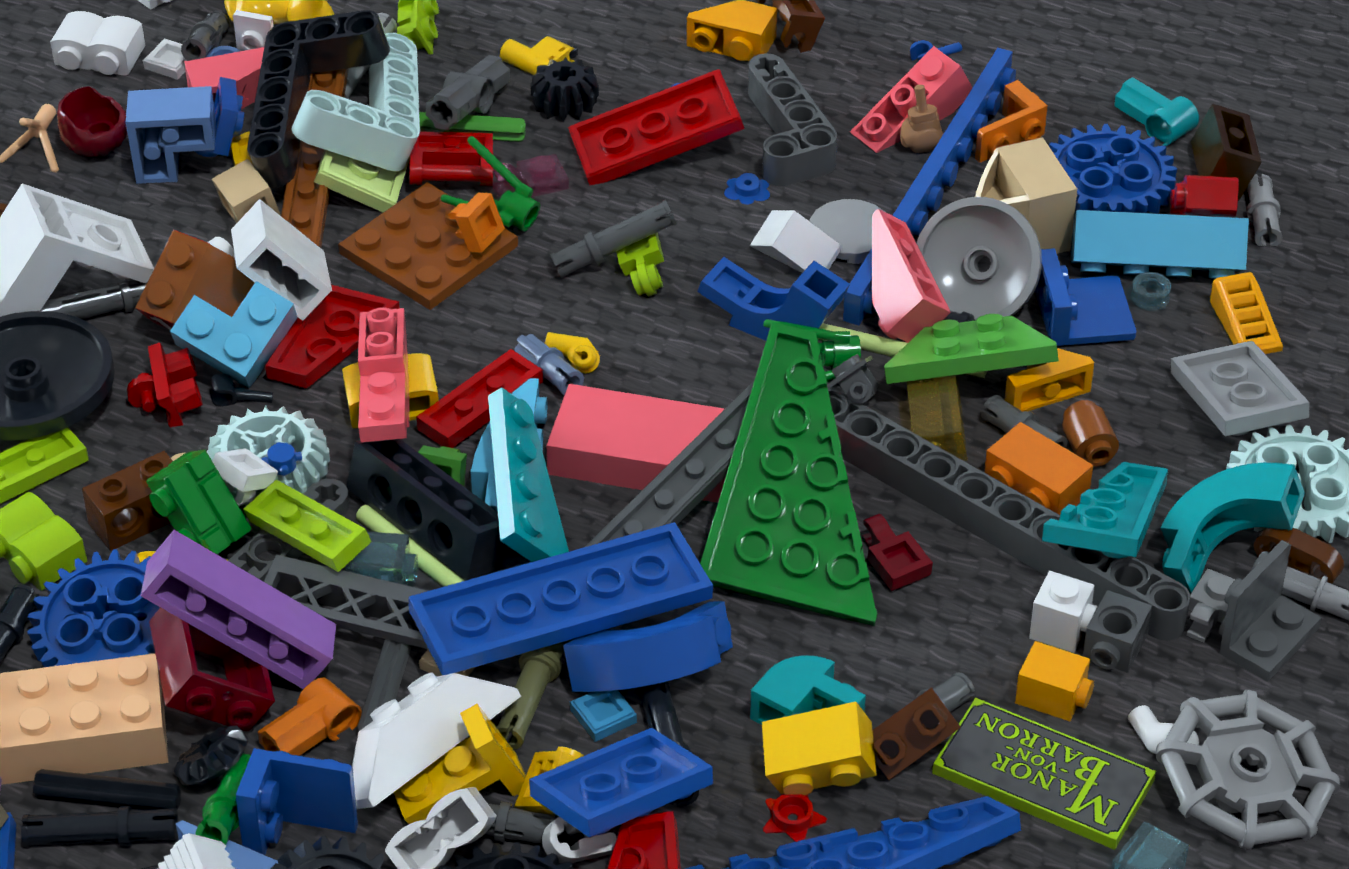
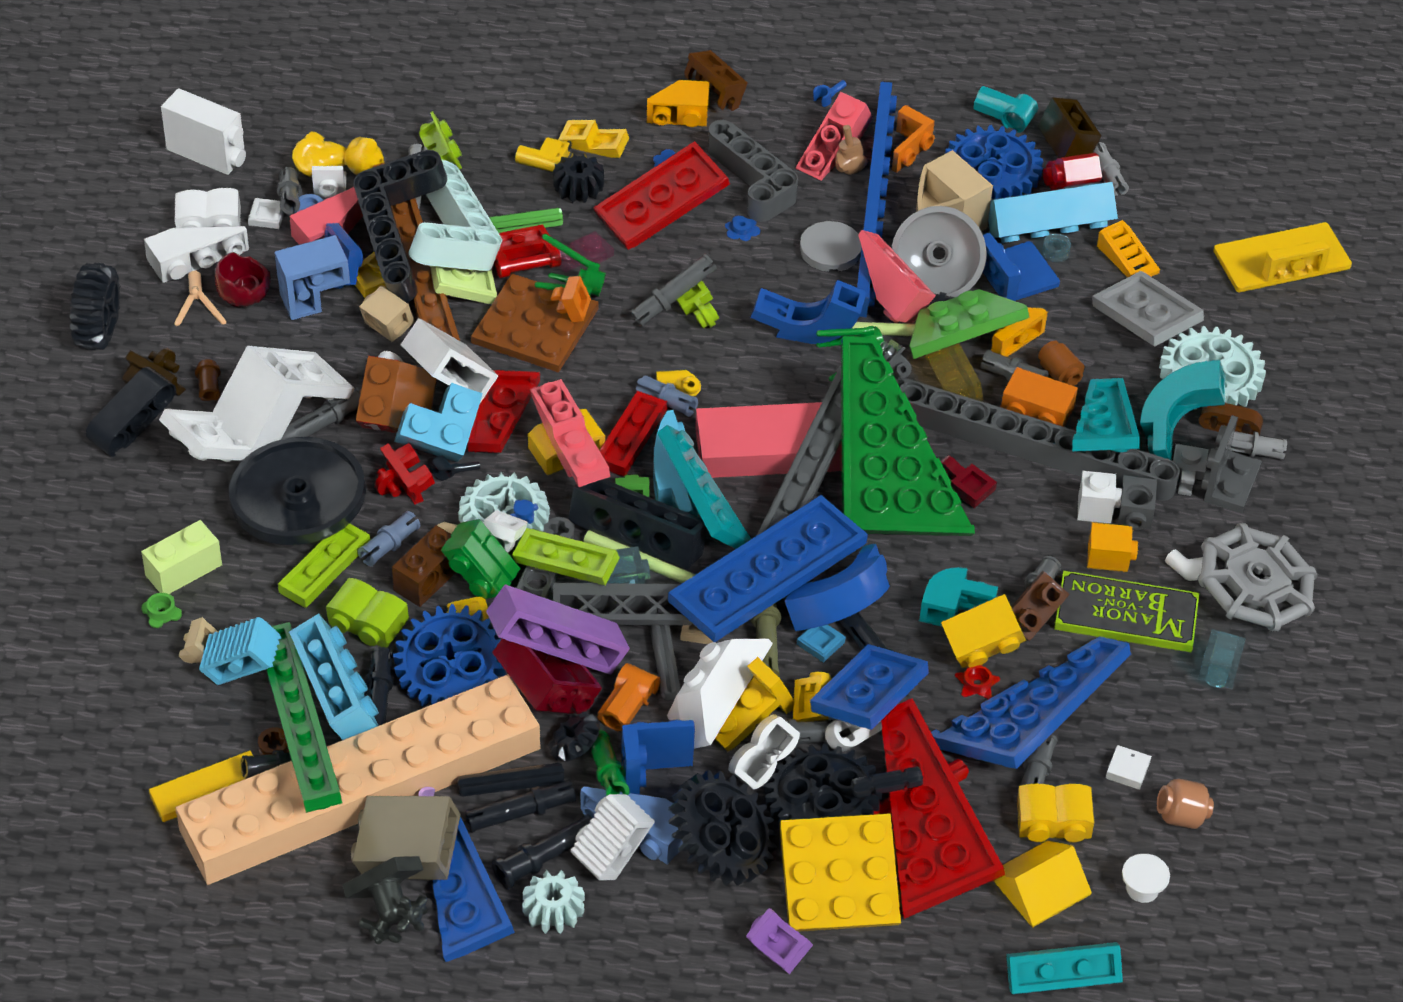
camera: 20 degrees left, 5 degrees up
(48, 75) = (189, 249): none -> white slope
(110, 458) = (389, 538): none -> sand blue pin
(467, 92) = (513, 196): dark grey piece -> none
(604, 48) = (588, 138): none -> yellow slope
(795, 241) = (799, 264): white slope -> none

